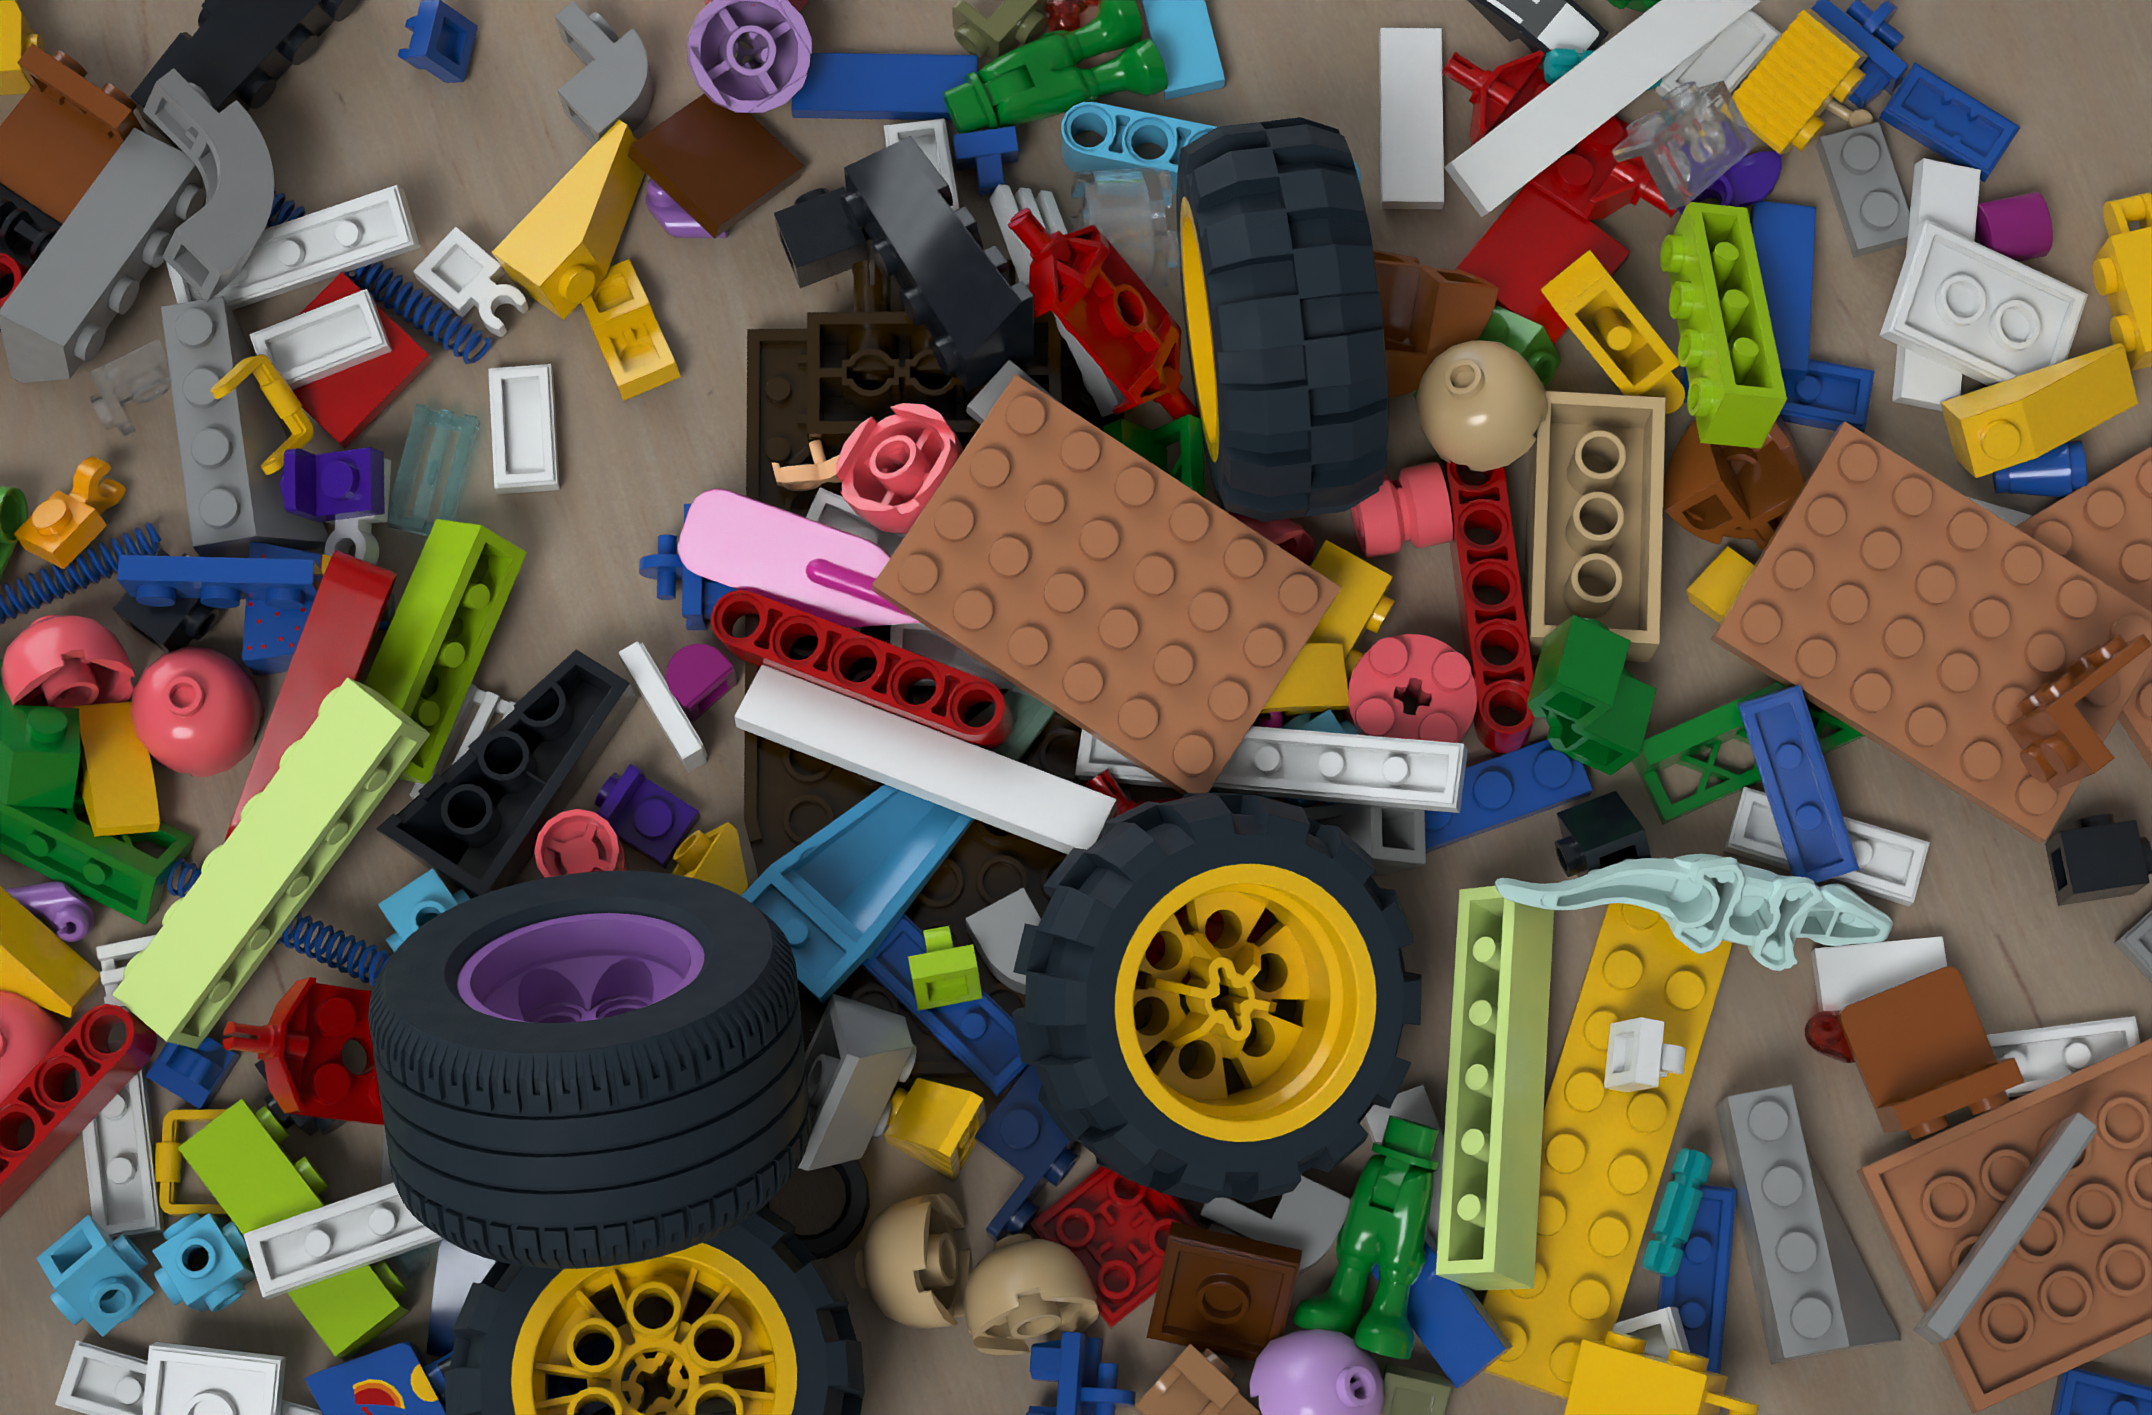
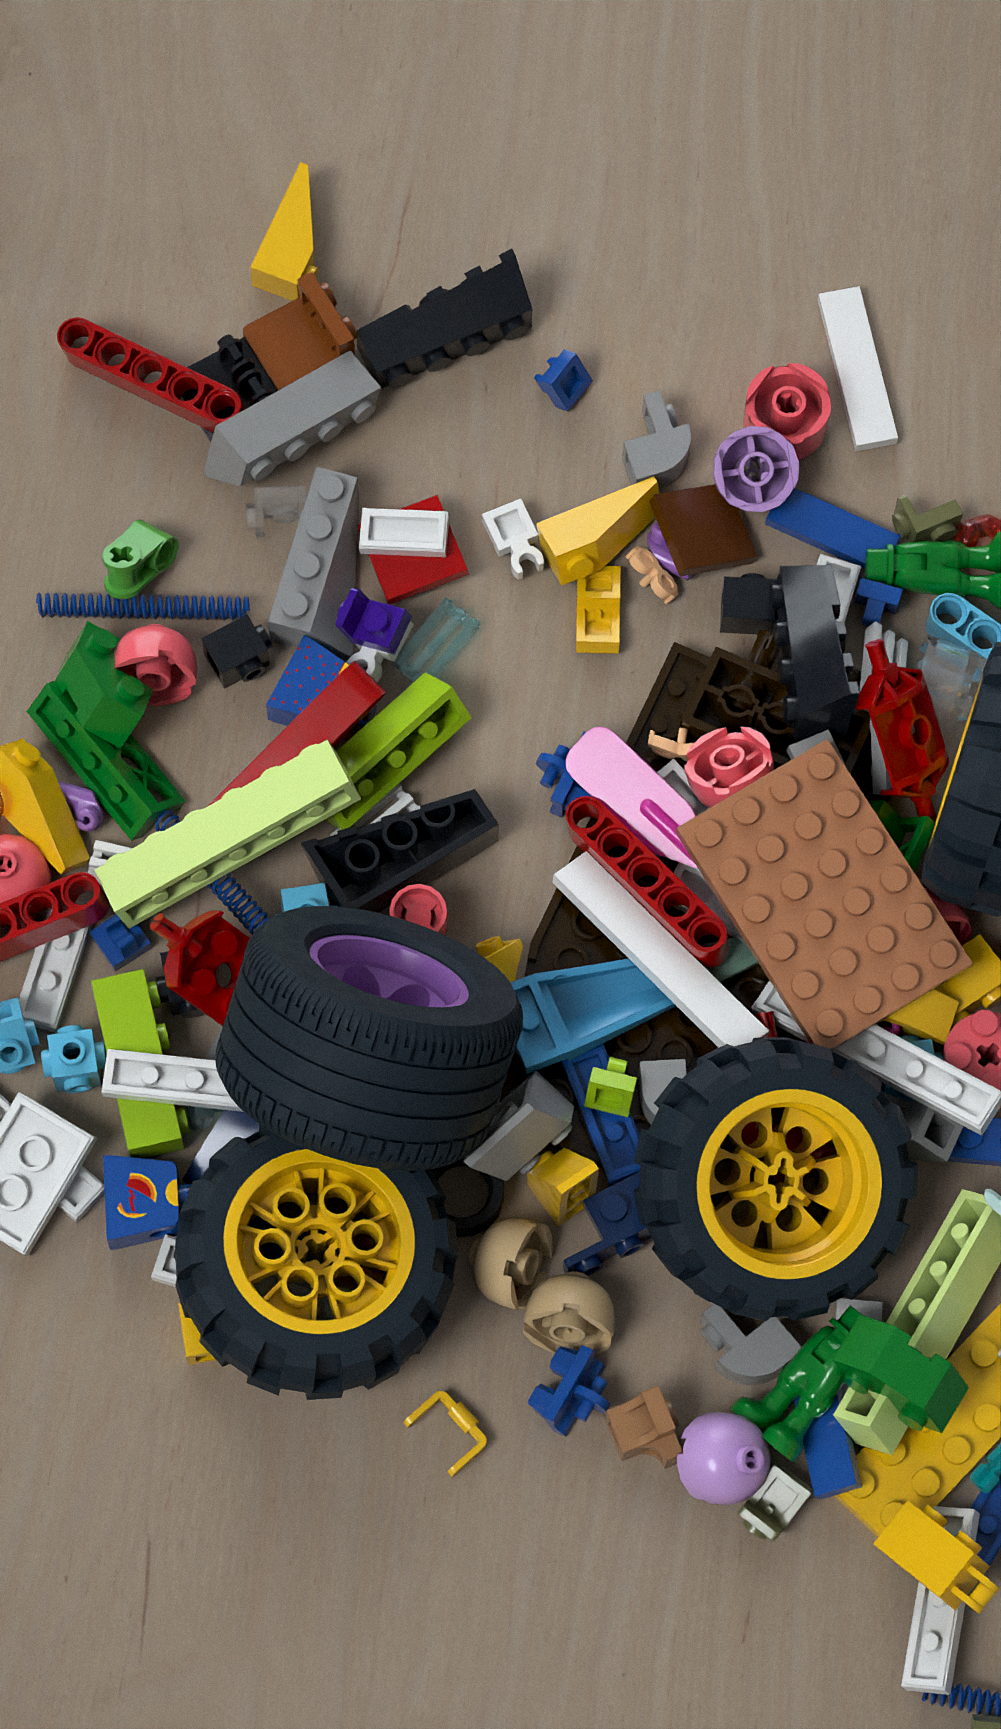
camera: 25 degrees right, 5 degrees down
(70, 522) = (197, 575): light orange plate -> none
(116, 772) = (158, 738): yellow slope -> none
(169, 1160) = (79, 991): yellow piece -> none
(196, 711) = (222, 724): coral cylinder -> none
(219, 580) = (275, 648): blue plate -> none
(236, 176) = (399, 409): light grey arch -> none
(280, 397) = (364, 555): yellow piece -> none
(318, 248) = (417, 470): white tile -> none
(402, 295) = (433, 462): blue piece -> none
(524, 429) = (505, 642): white tile -> none
(645, 815) = (470, 912): dark purple bracket -> none
(664, 706) = (513, 851): white tile -> none
(692, 255) = (659, 579): none -> light nougat piece
(699, 678) = (543, 844): magenta brick -> none
(1117, 1235) = (650, 1310): red tile -> none
(1223, 1291) = (694, 1366): reddish brown tile -> none
(1475, 1176) = (918, 1386): none -> green brick

